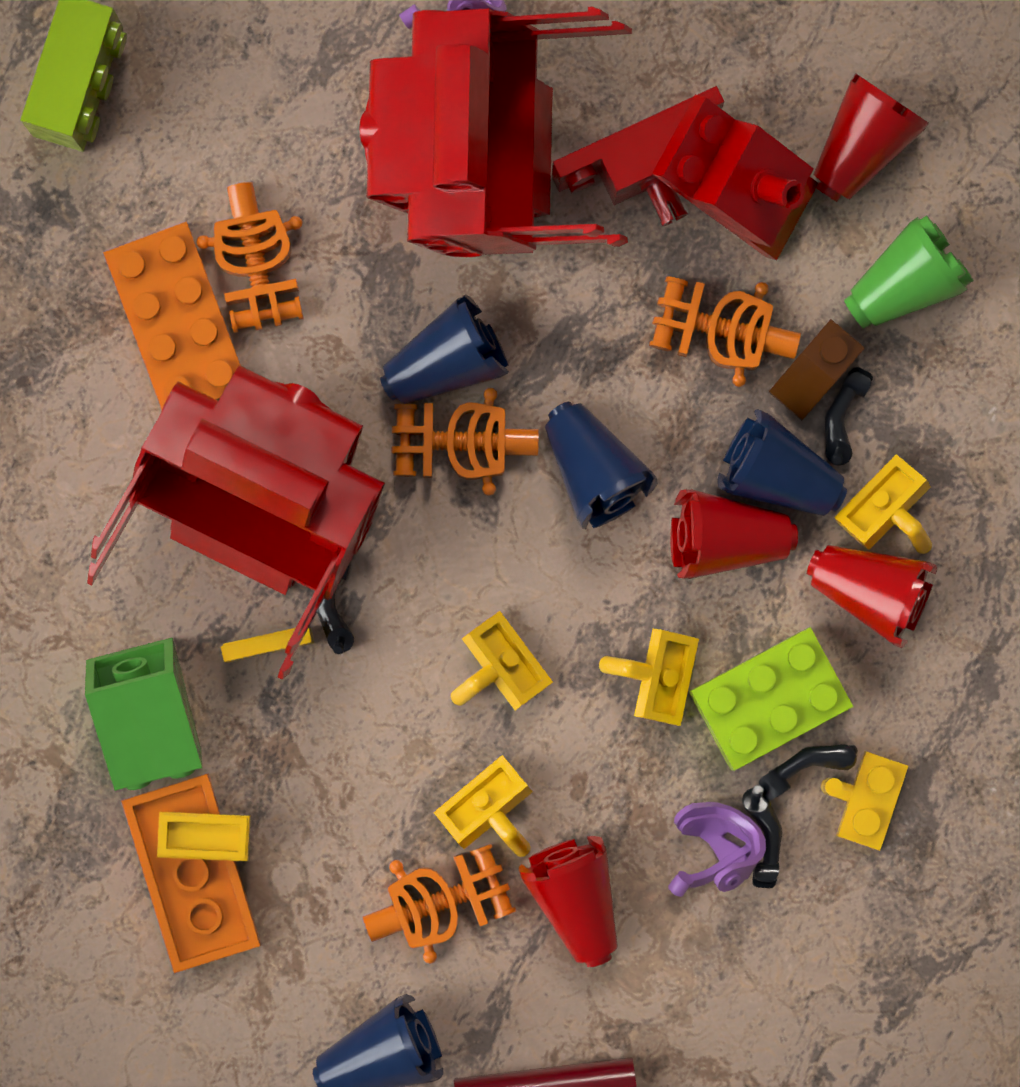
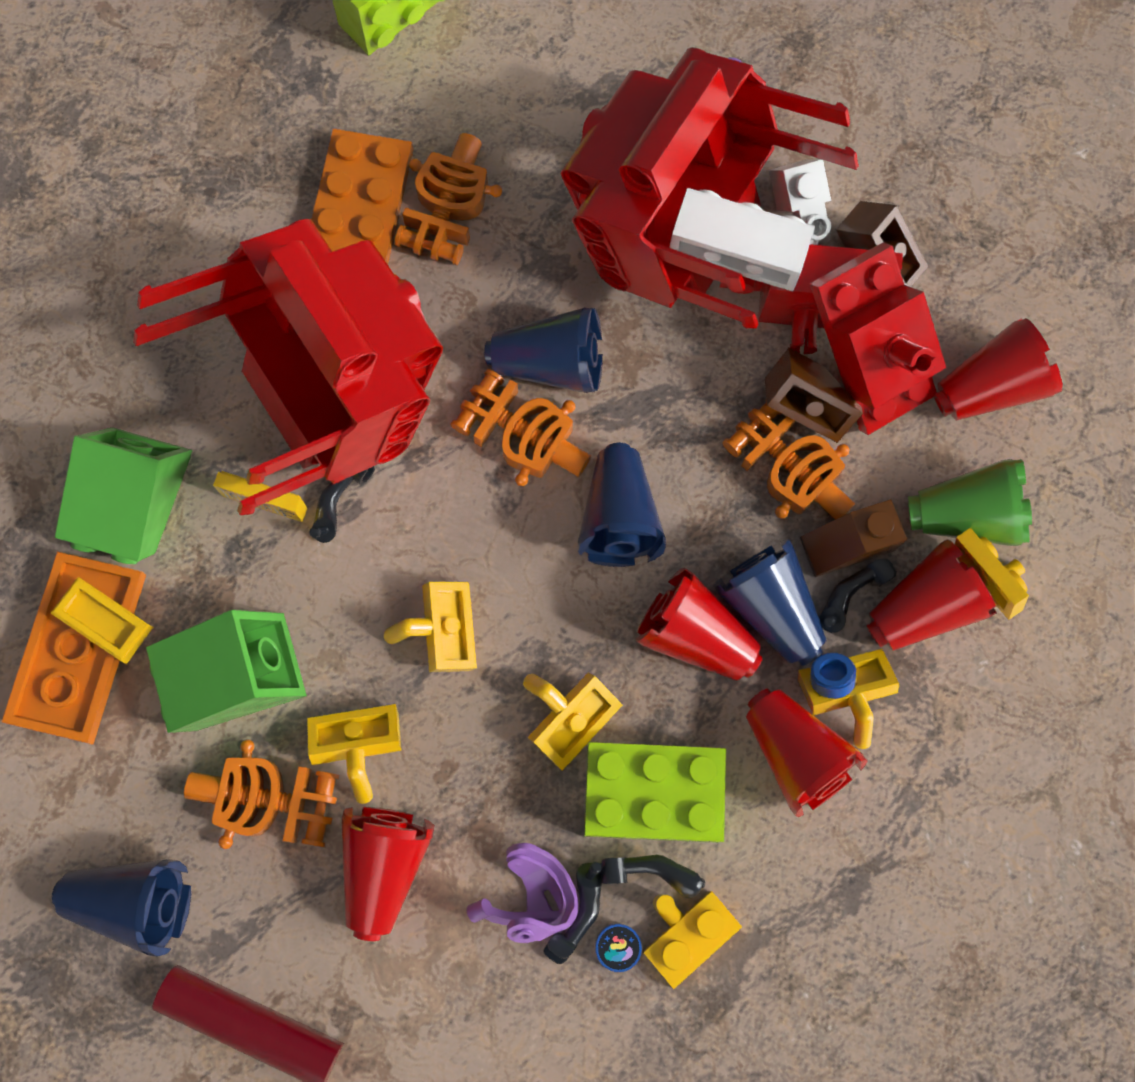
camera: 30 degrees right, 10 degrees down
(337, 815) = (225, 670): none -> bright green slope
(566, 164) = (742, 238): none -> white brick
(591, 64) = (803, 191): none -> white brick
(688, 65) = (882, 223): none -> reddish brown slope
(704, 259) = (810, 396): none -> reddish brown slope
(814, 844) = (618, 947): none -> tile
(866, 506) = (833, 675): none -> blue tile
(915, 389) = (931, 600): none -> red cone
(963, 337) = (1001, 581): none -> yellow plate

